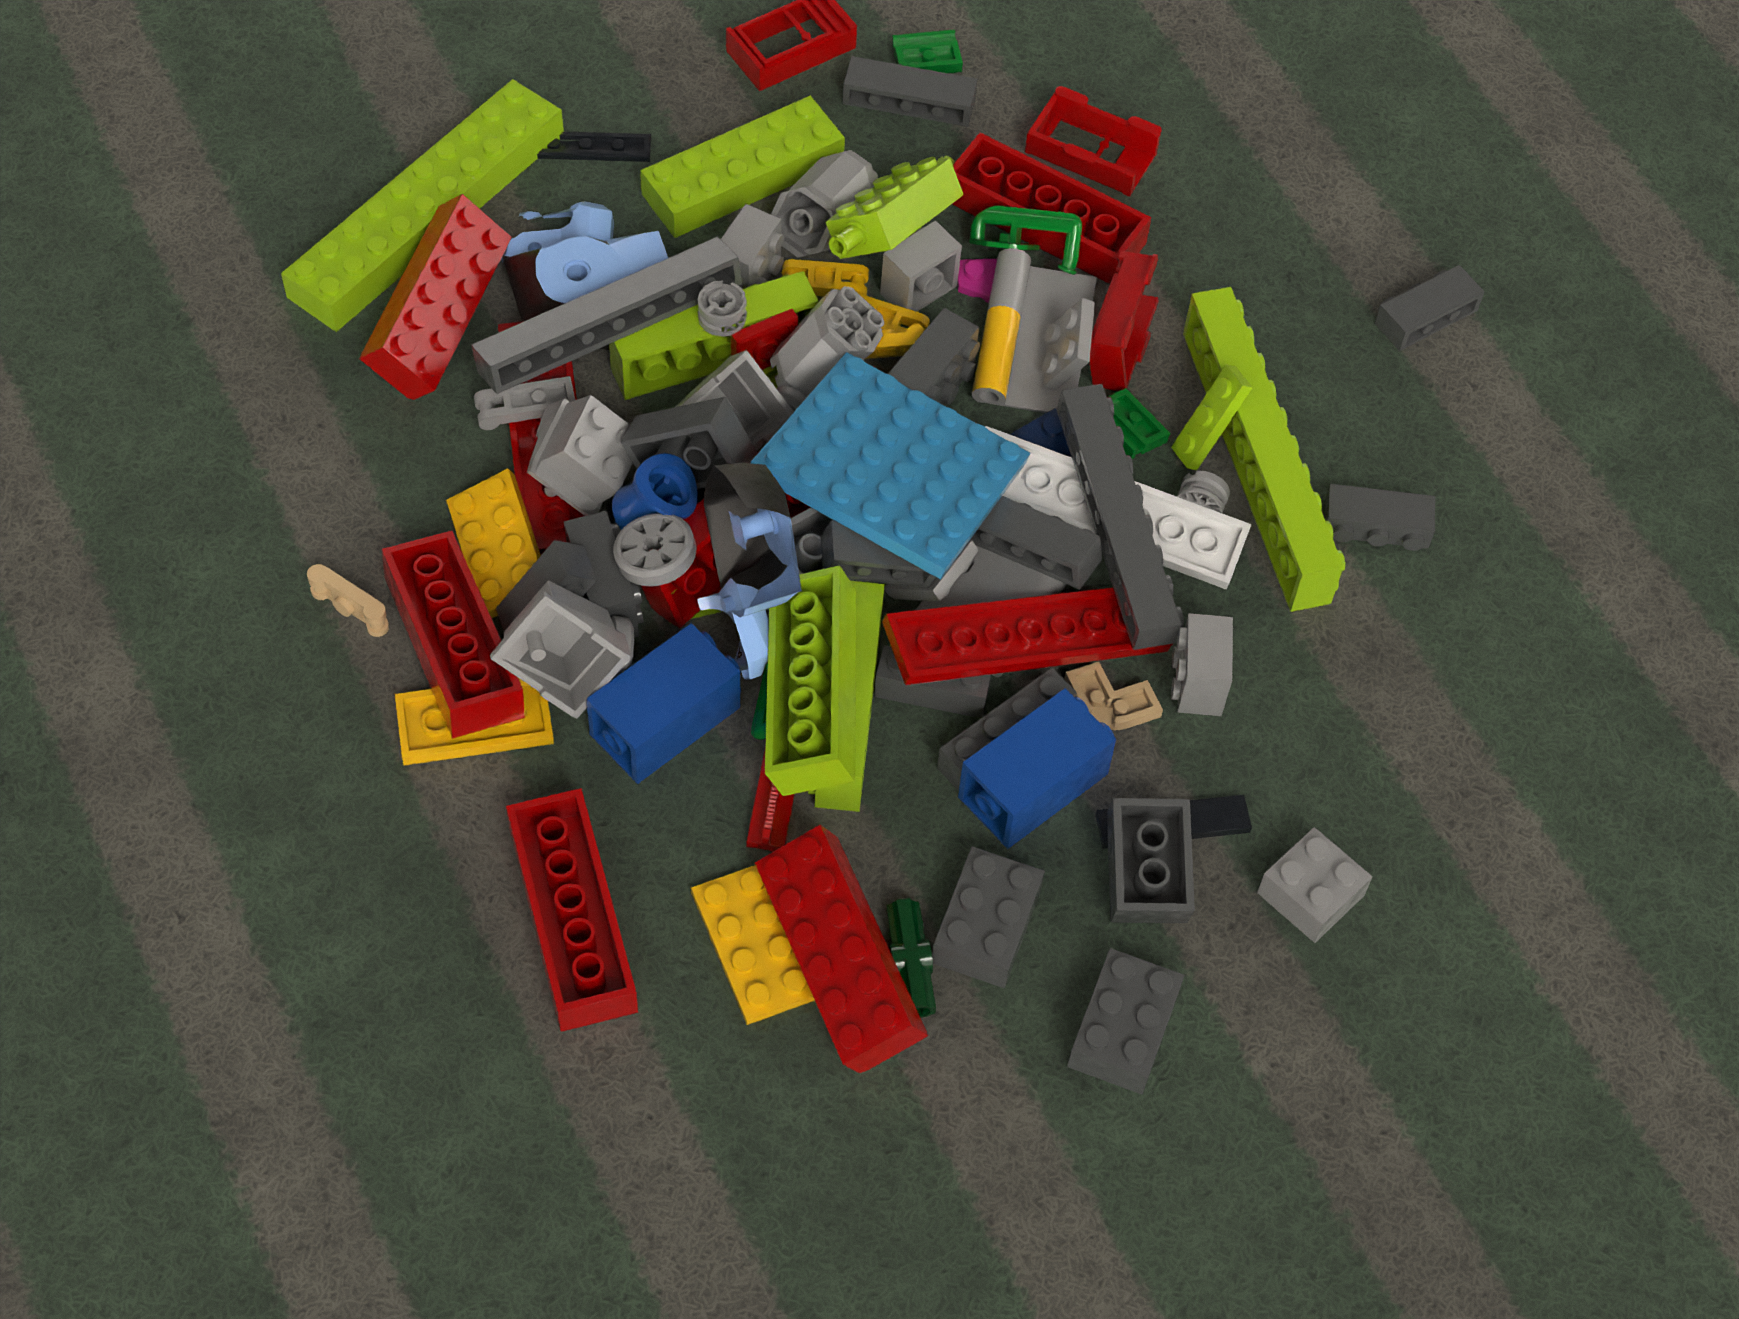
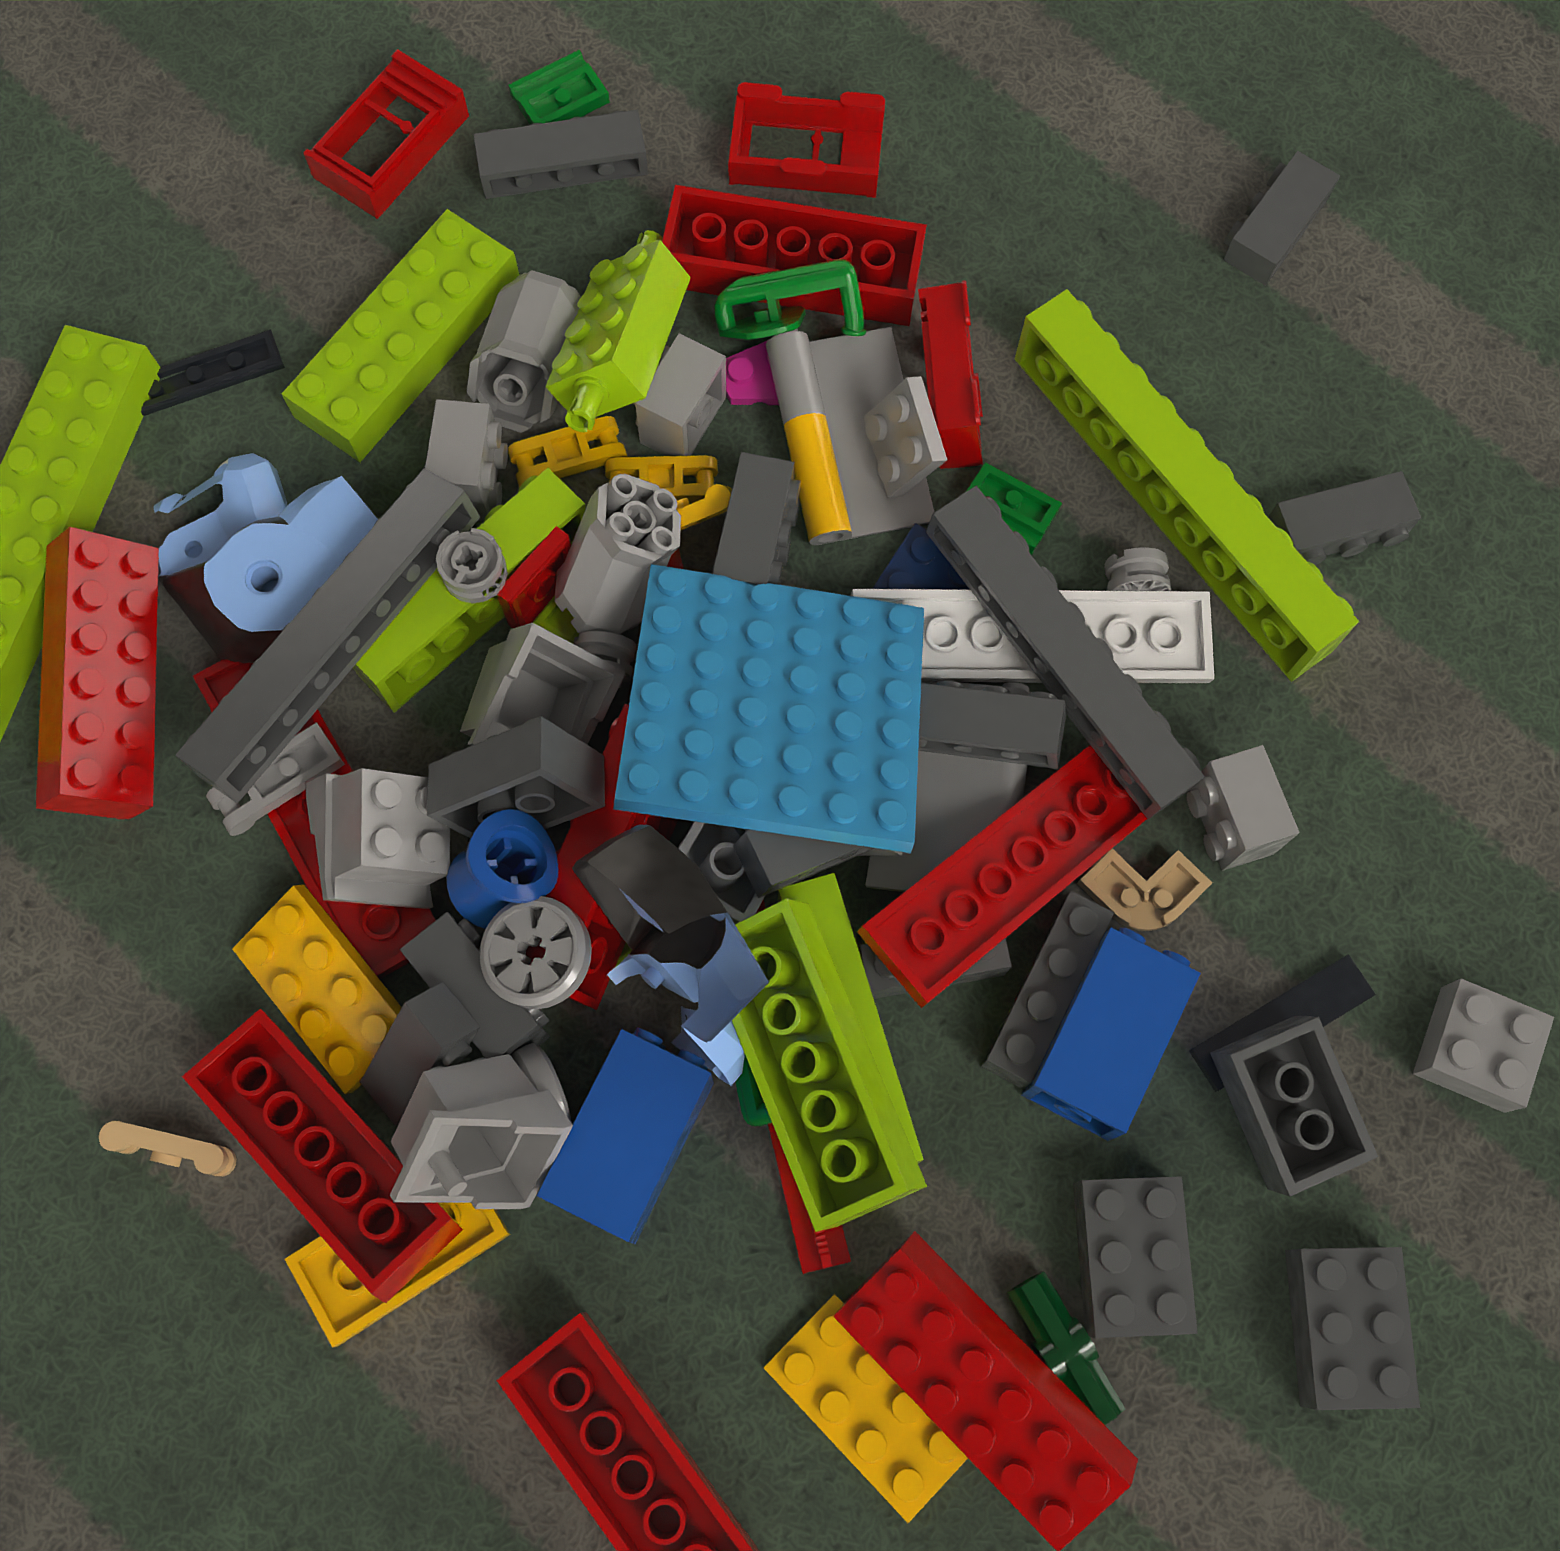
camera: 20 degrees left, 15 degrees up
(1211, 417) = (1113, 470): lime plate -> none

